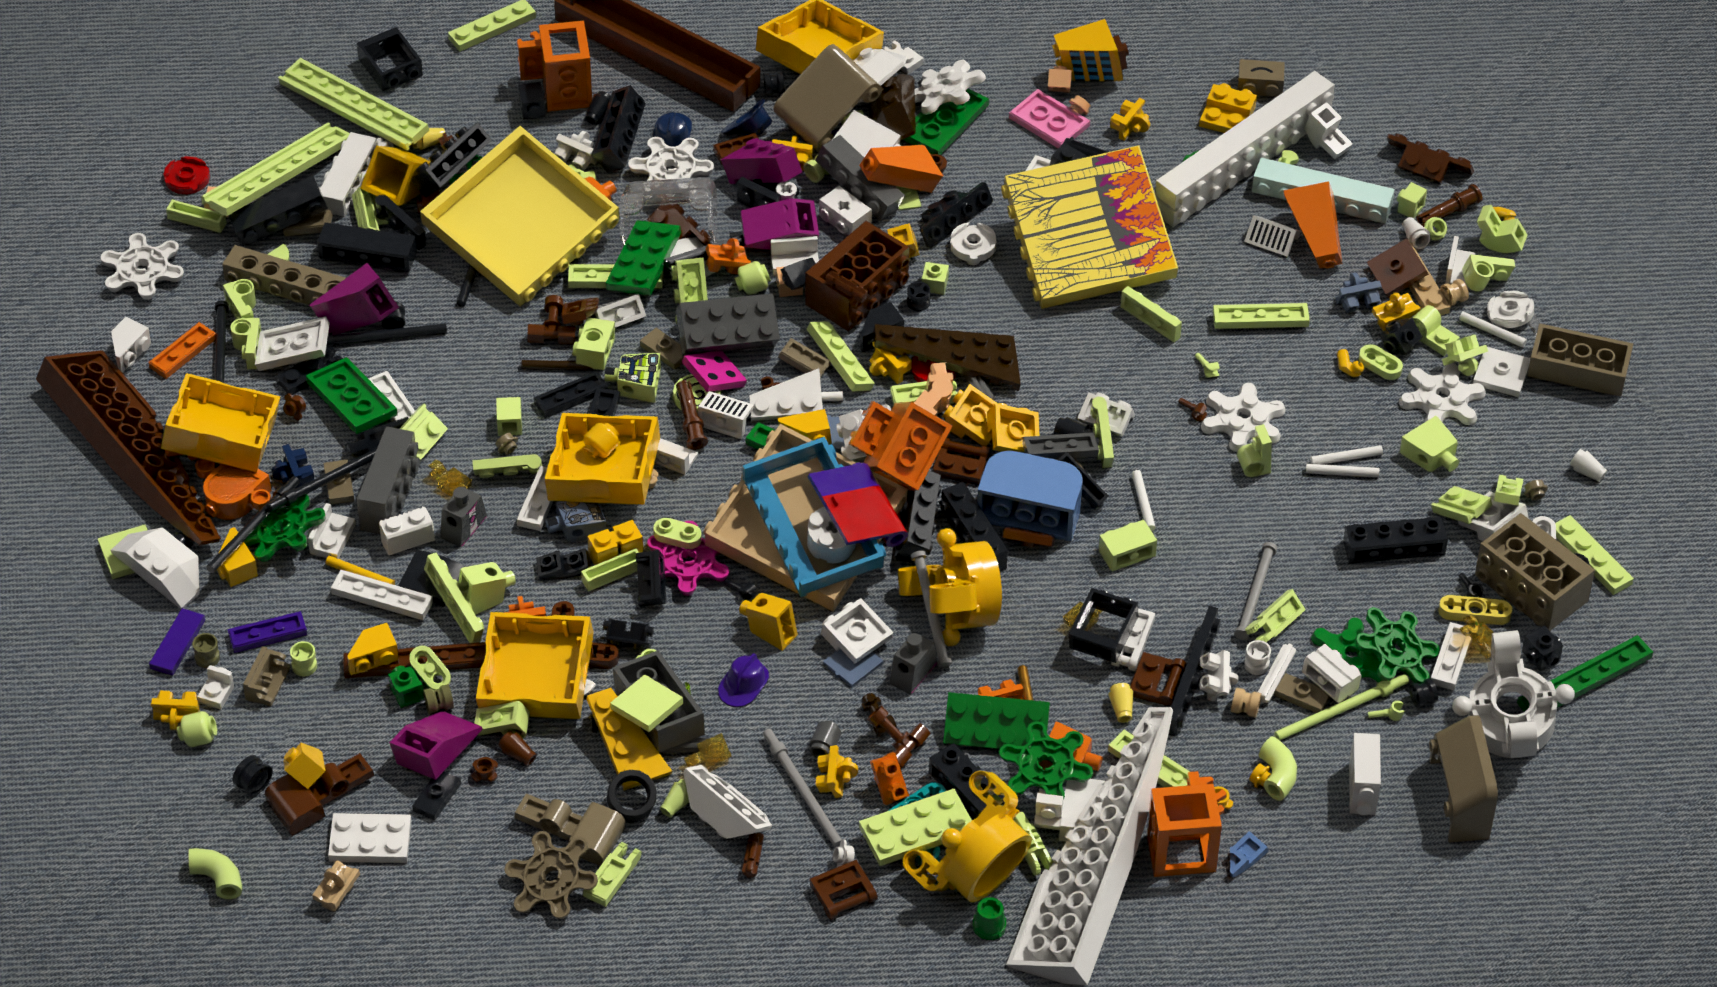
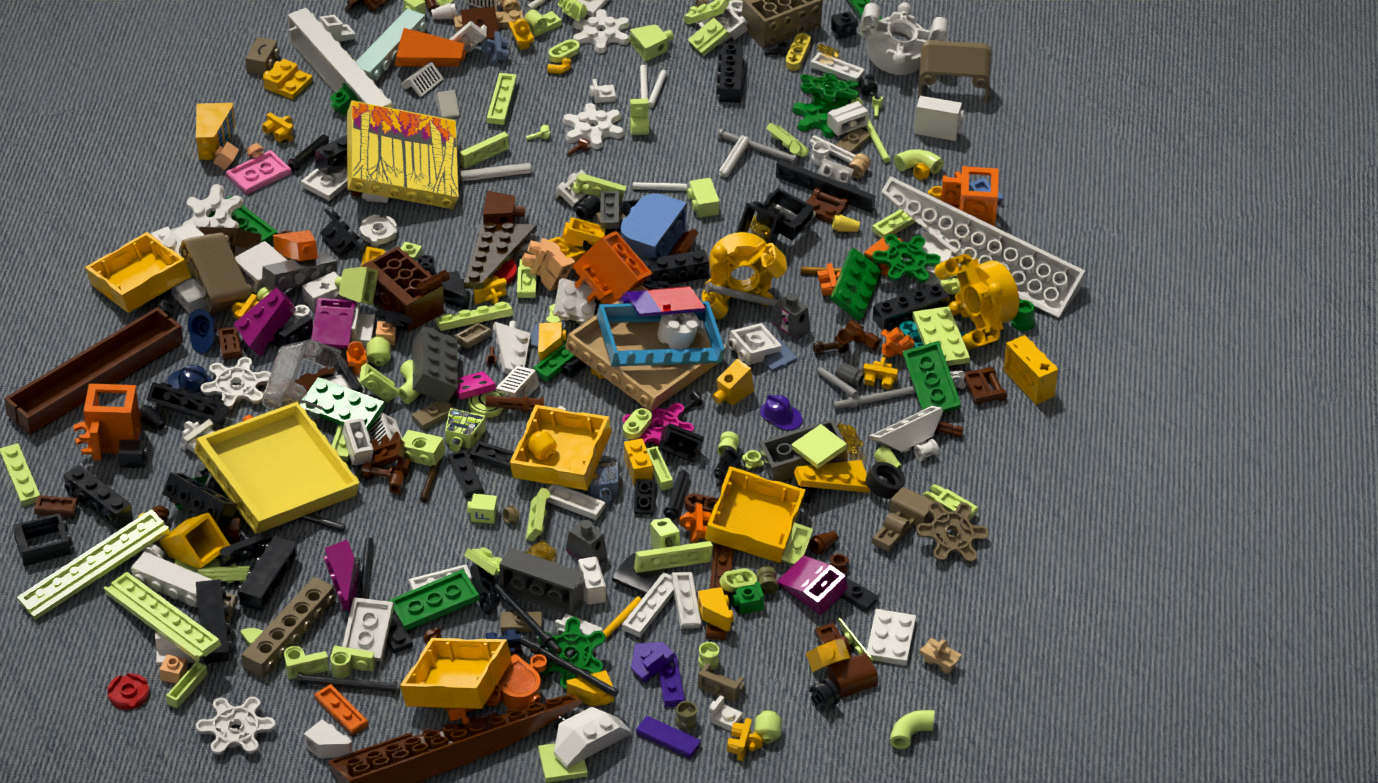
camera: 80 degrees left, 5 degrees down
(290, 604) = (650, 658): none -> dark purple plate
(346, 799) = (859, 649): none -> yellowish green piece
(399, 620) = (686, 600): none -> white tile
(445, 61) = (53, 505): none -> reddish brown plate
(460, 89) = (98, 497): none -> black brick
(572, 594) = (671, 510): none -> black axle
(579, 278) = (357, 441): none -> white brick
(666, 631) = (728, 439): none -> yellowish green wheel
(703, 837) = (926, 450): none -> white bush
(807, 729) = (836, 381): none -> light grey bar
(825, 821) = (931, 377): none -> green plate
(841, 223) = (358, 284): none -> yellowish green torso
(869, 929) = (1030, 369): none -> yellow piece
(1040, 347) = (501, 208): none -> reddish brown torso
(1063, 600) = (748, 214): none -> black window
(1118, 334) = (493, 172): none -> white axle
(1222, 566) = (734, 156): none -> white axle
(1234, 264) = (447, 104): none -> white slope
(1310, 413) = (602, 93): none -> white bracket
(1352, 254) = (470, 36): none -> white bracket
(1400, 336) = (547, 34): black brick -> none

